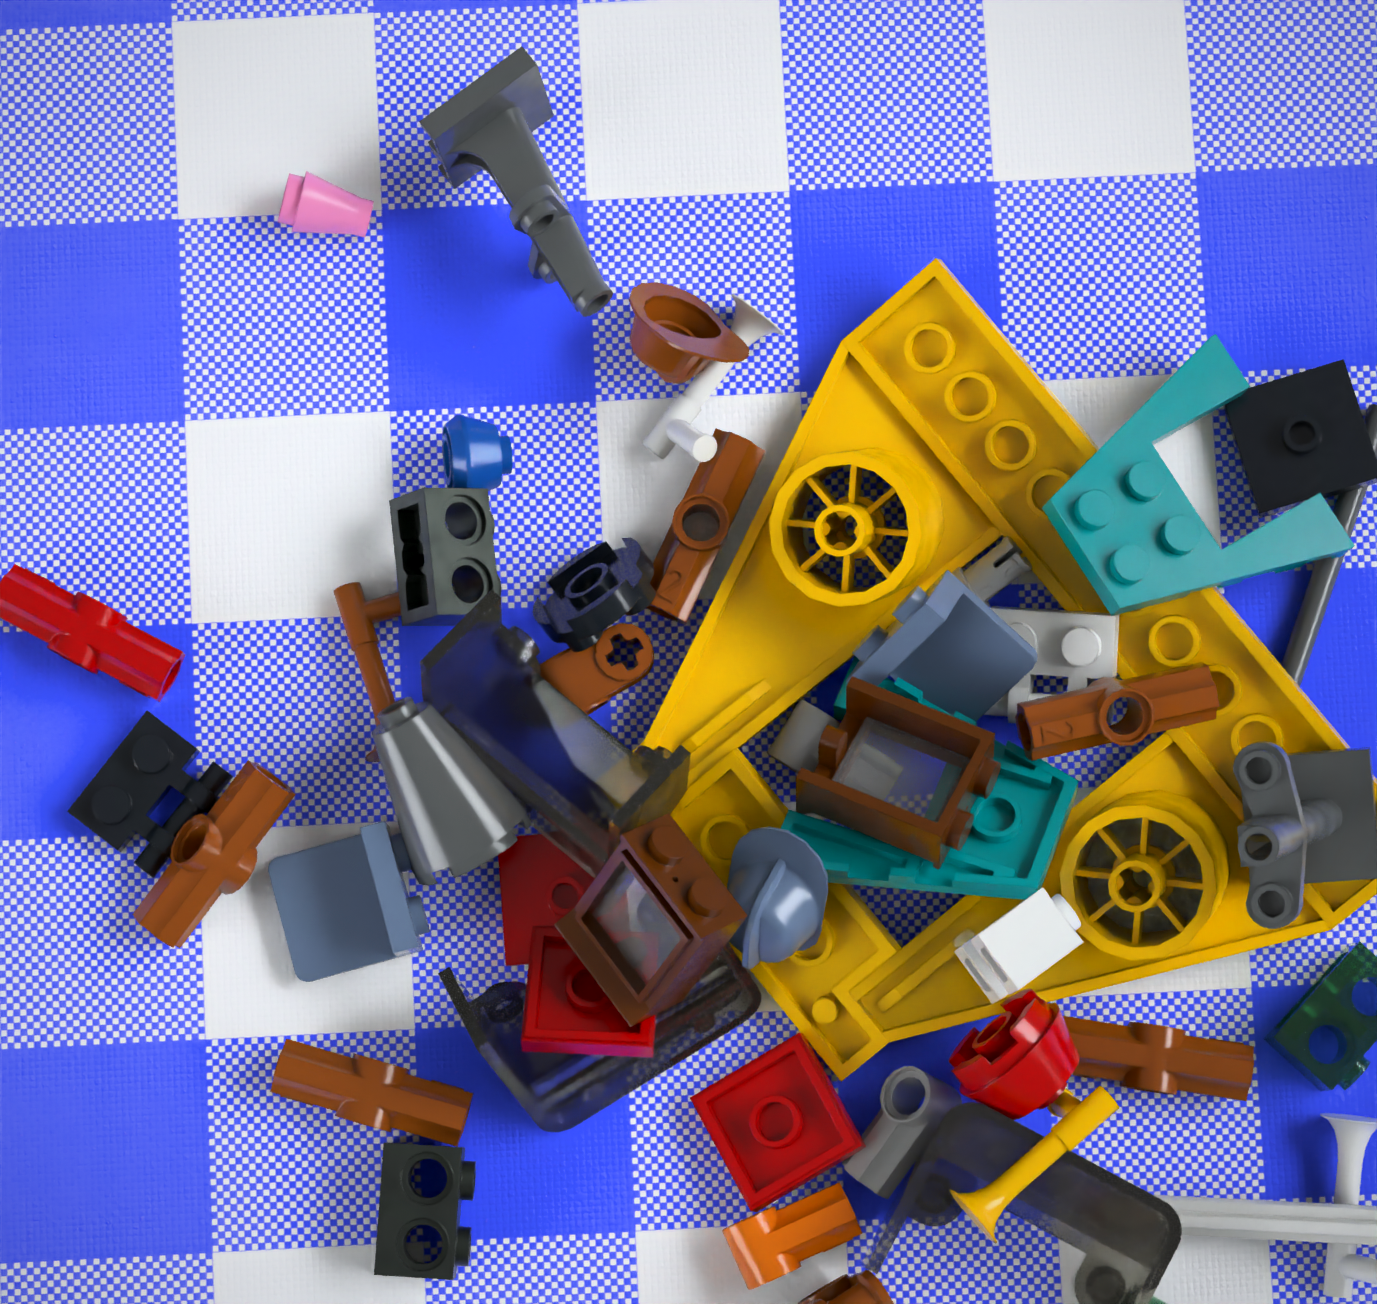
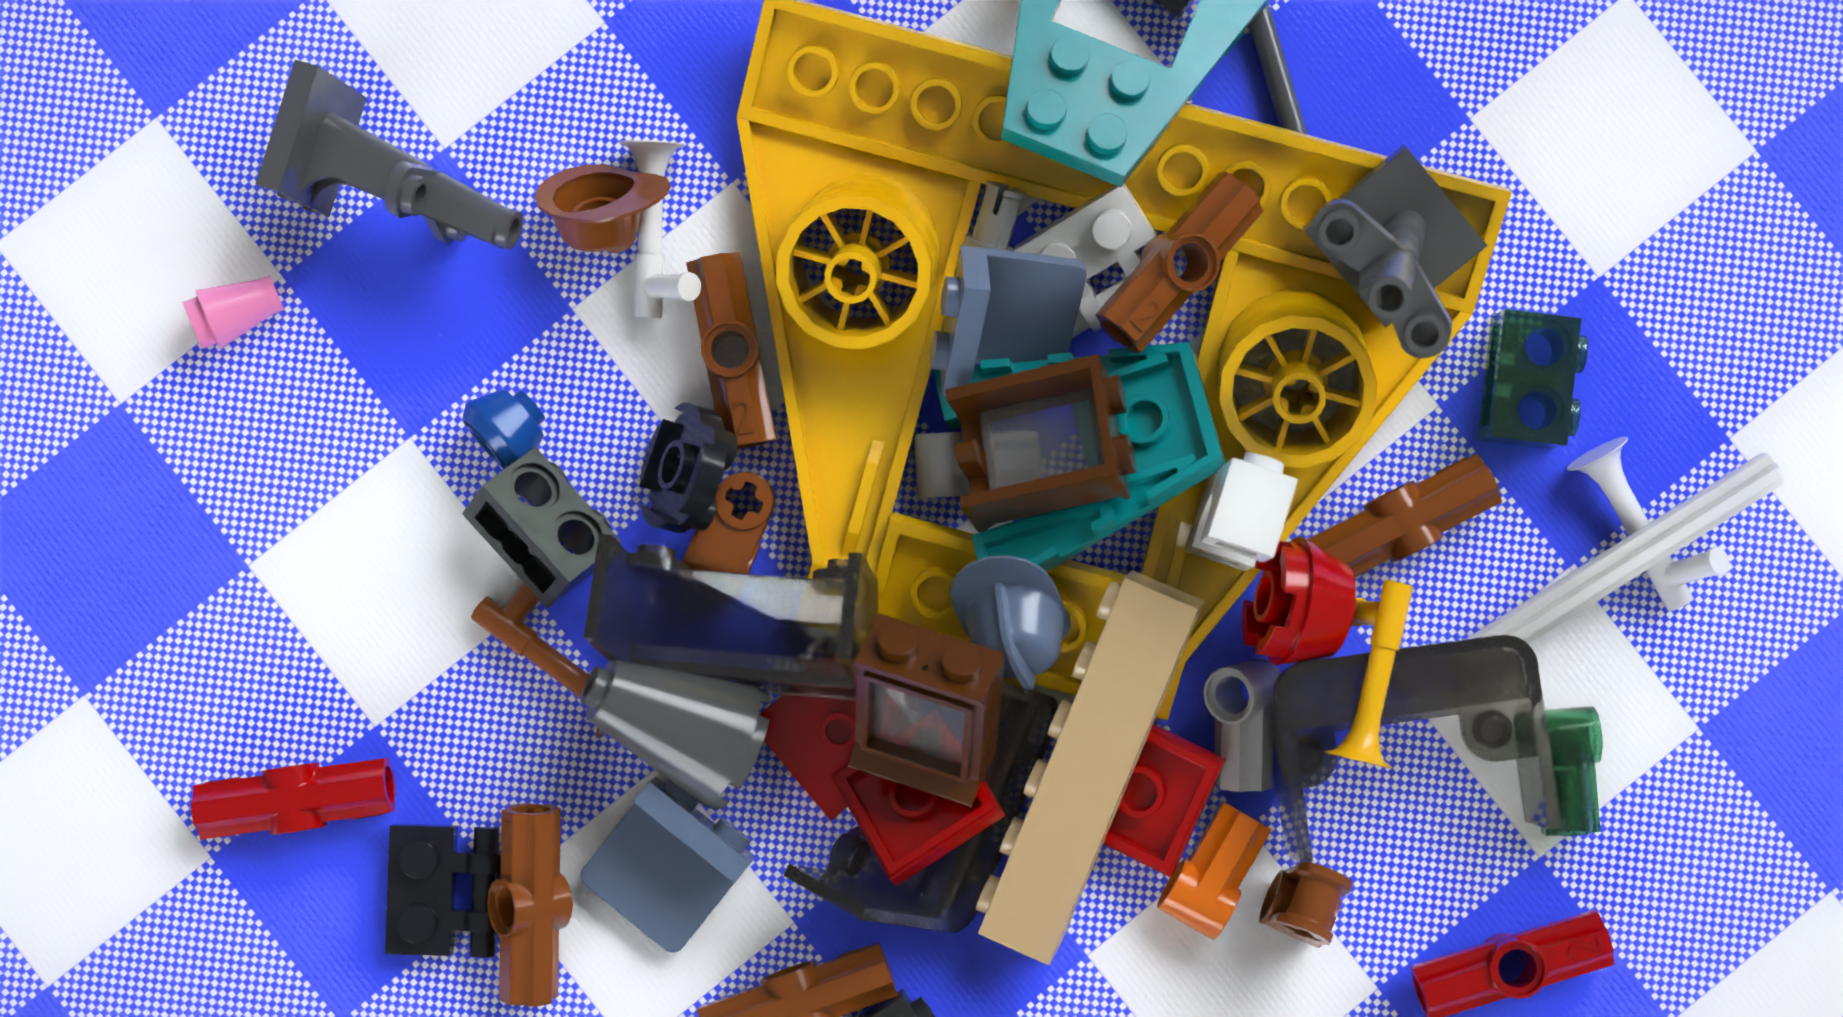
camera: 35 degrees left, 5 degrees up
(749, 1068) = (1089, 766): none -> tan brick

